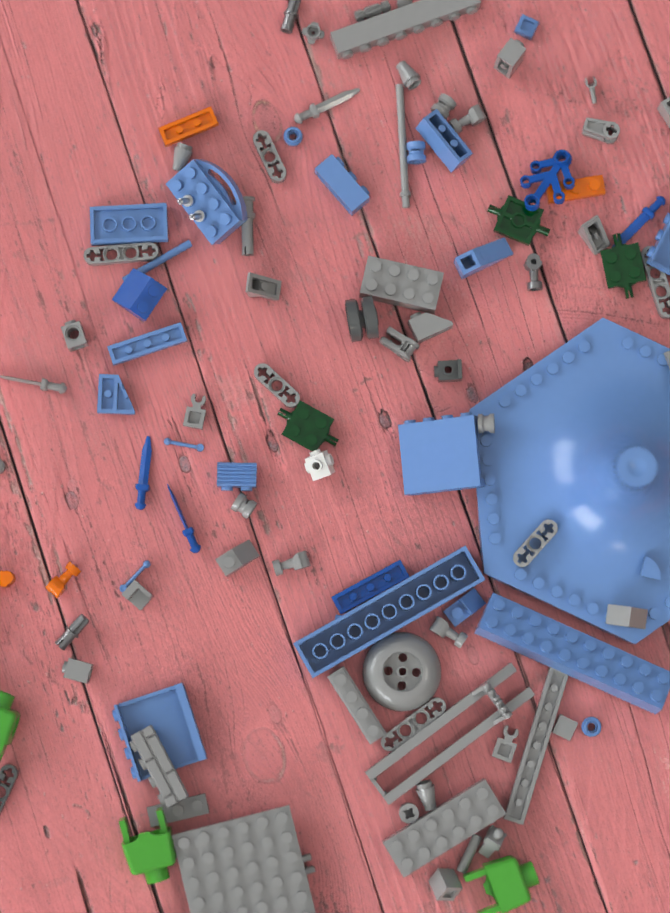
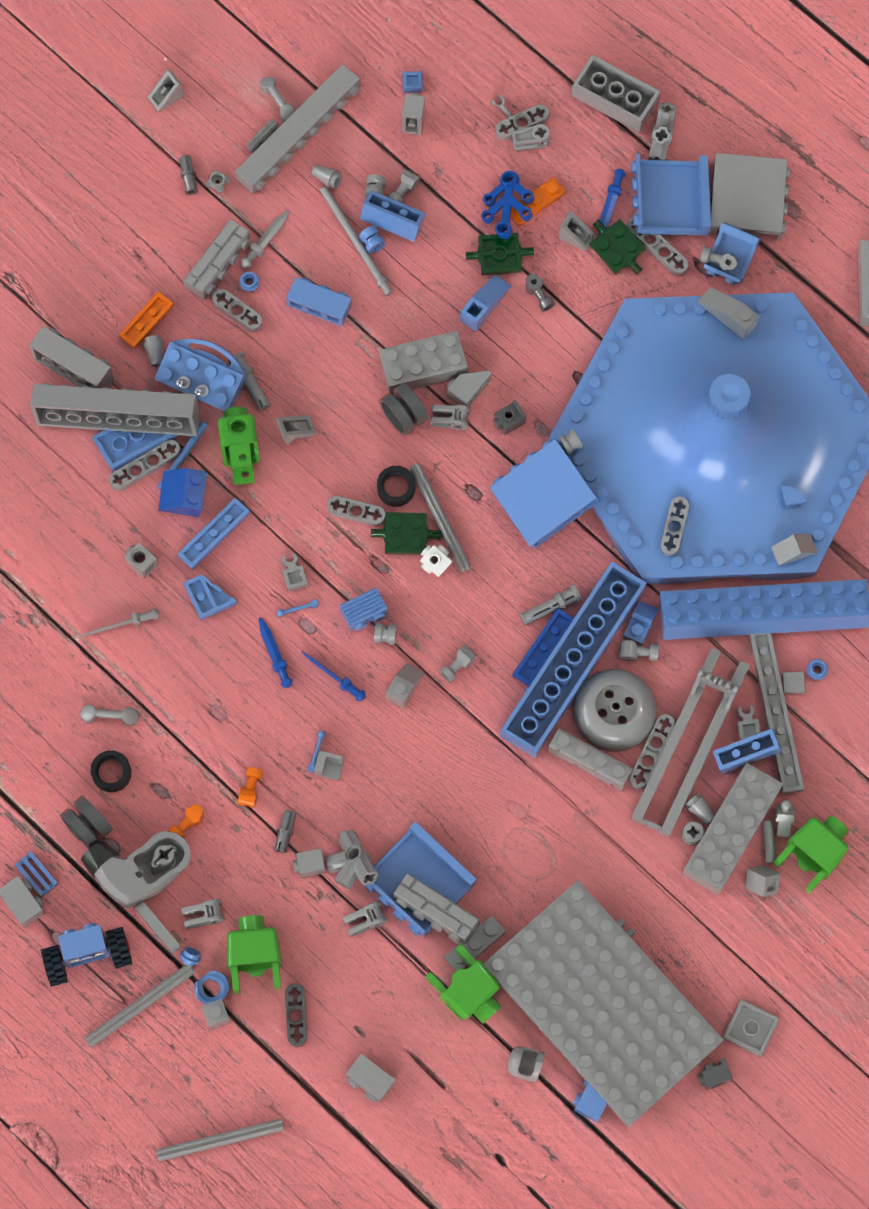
camera: 25 degrees left, 10 degrees down
(31, 878) = (370, 1079): none -> light grey brick
(103, 131) = (69, 360): none -> light grey brick
(105, 745) = (370, 923): none -> light grey piece
(111, 689) = (351, 862): none -> light grey piece
(118, 194) = (115, 409): none -> light grey brick
(207, 277) = (239, 443): none -> bright green piece
(275, 103) = (217, 259): none -> light grey brick
(328, 368) = (396, 471): none -> black tyre
(344, 428) = (440, 517): none -> light grey axle
(406, 553) = (559, 600): none -> light grey pin
(491, 769) = (747, 751): none -> medium blue brick
(606, 105) = (506, 124): none -> light grey beam

